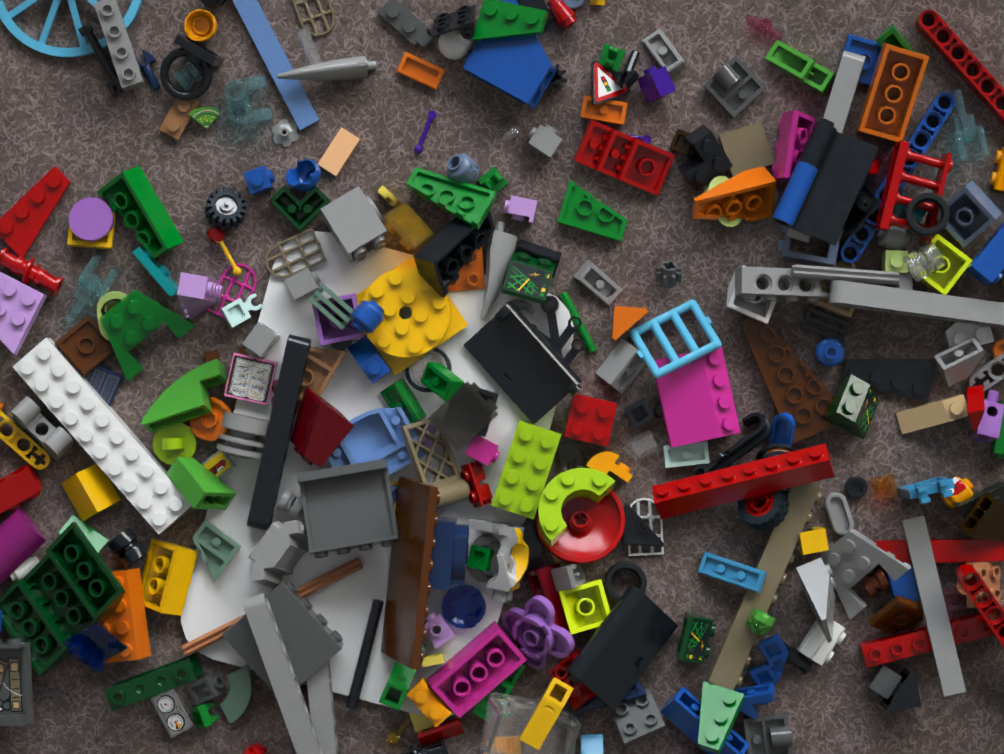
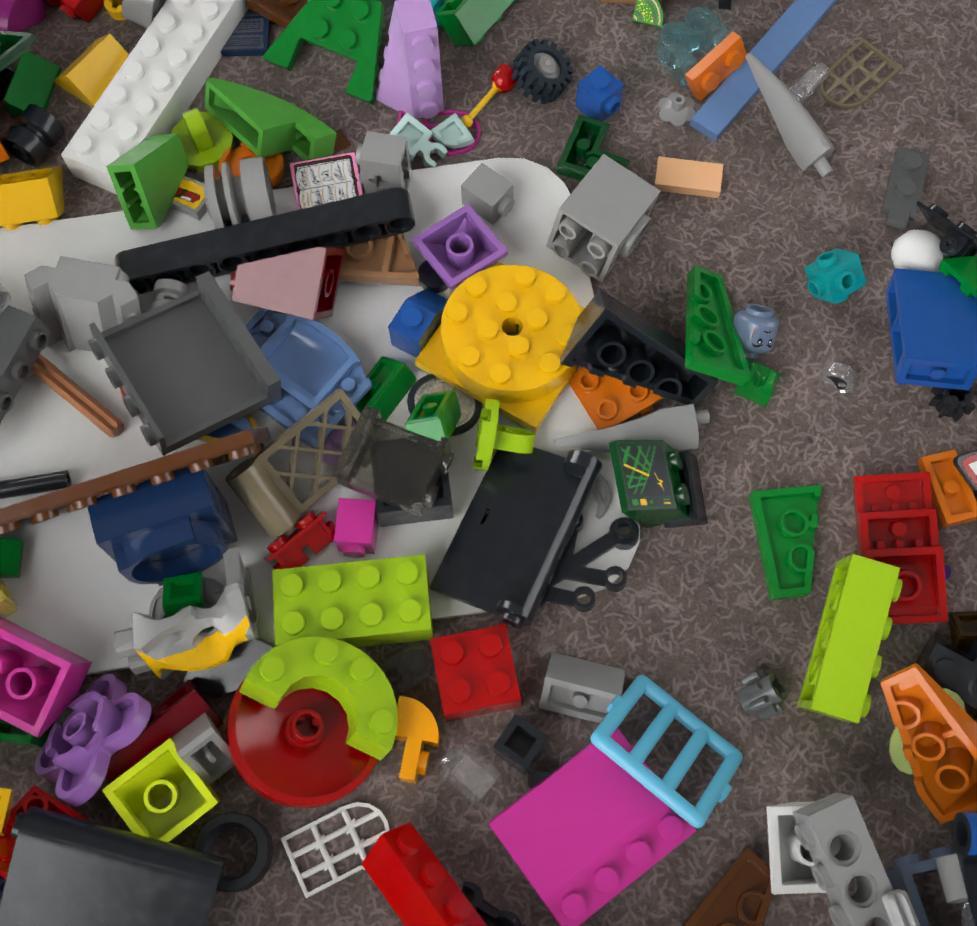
camera: 70 degrees right, 20 degrees down
(215, 547) = (70, 233): sand green wing -> none
(242, 284) = (452, 133): none -> light aqua tile
(275, 105) = (716, 66): none -> orange plate
(299, 247) = (536, 176): dark tan window -> none
(304, 176) = (634, 147): blue hair -> none
(323, 287) = (481, 205): sand green tile -> none
(367, 316) = (481, 268): blue head -> none
(388, 196) = (663, 255): light yellow tile -> none
(409, 226) = (639, 279): clear yellow slope -> none
(420, 71) = (854, 227): orange tile -> none
(432, 115) = (747, 270): dark purple hinge -> none
(446, 632) = (54, 590): lavender brick -> none
(449, 104) = (835, 275): none -> teal brick
(463, 606) = (99, 605): clear blue dish -> none
(467, 349) = (496, 436): none -> lime tile
(520, 208) = (743, 434): lavender brick -> none
(544, 140) = (857, 424): light grey brick -> none
(582, 330) = (611, 598): green bar -> none
(597, 282) = (691, 595): light grey slope -> none
(625, 318) = (659, 658): orange slope -> none
(637, 531) = (326, 832): black tile -> none
(663, 218) = (850, 638): none -> lime brick
(686, 455) = (488, 859): light aqua plate -> none

